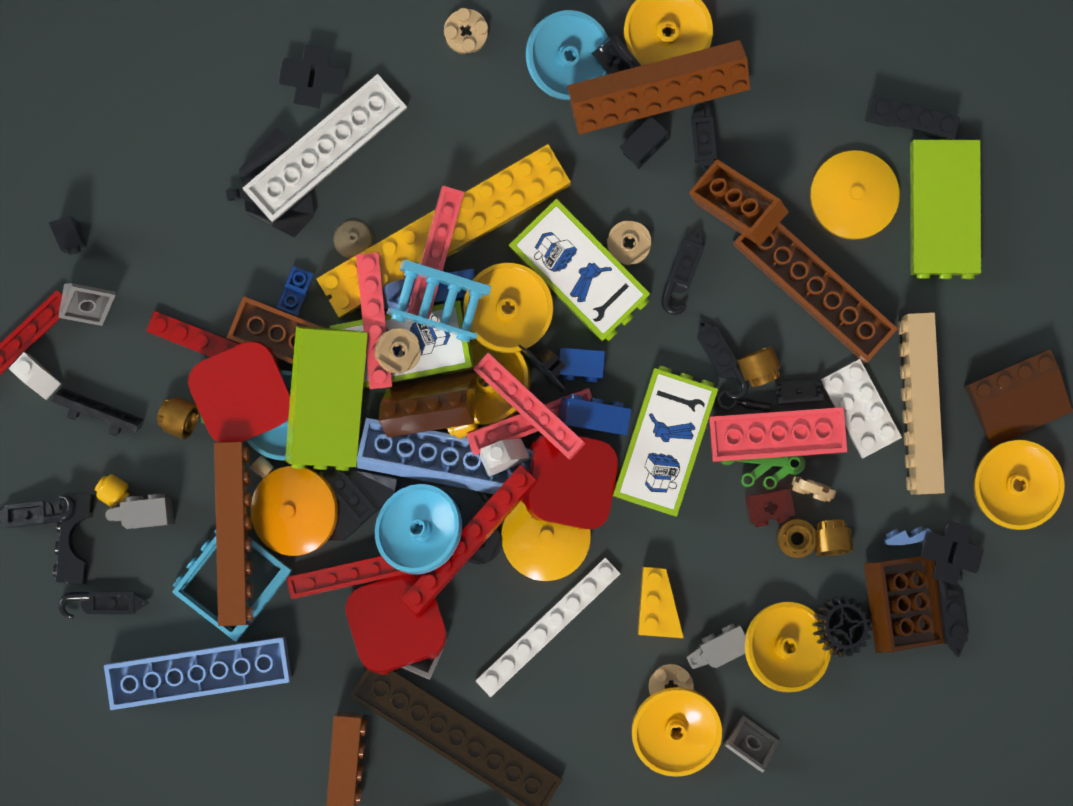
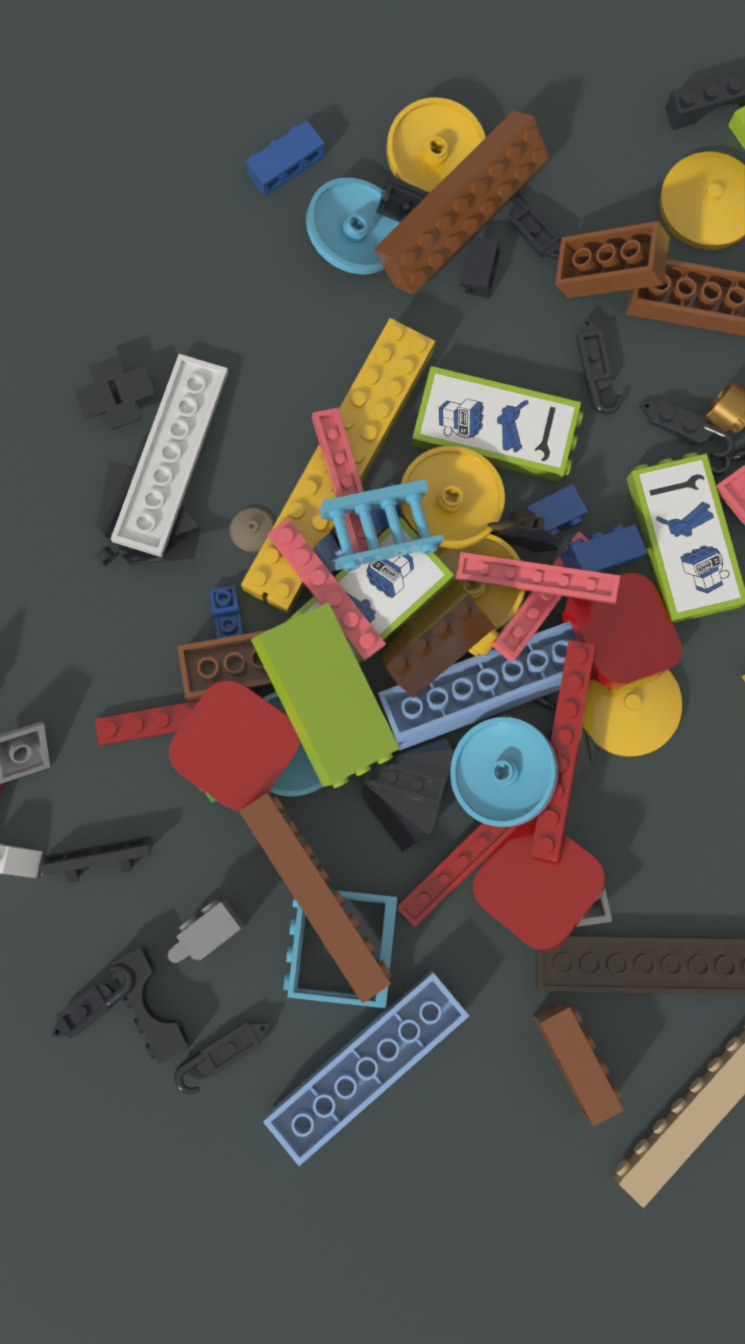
camera: 30 degrees left, 5 degrees down
(111, 490) = (160, 929): yellow head -> none
(178, 417) = (184, 811): pearl gold piece -> none
(261, 466) = (300, 809): tan hose -> none
(294, 511) = (362, 833): light orange dish -> none
(393, 338) = (359, 613): tan plate -> none
(464, 18) = (236, 252): tan plate -> none
(503, 455) = (542, 645): white slope -> none
(547, 627) = (689, 795): white plate -> none
(630, 230) = (520, 357): tan plate -> none

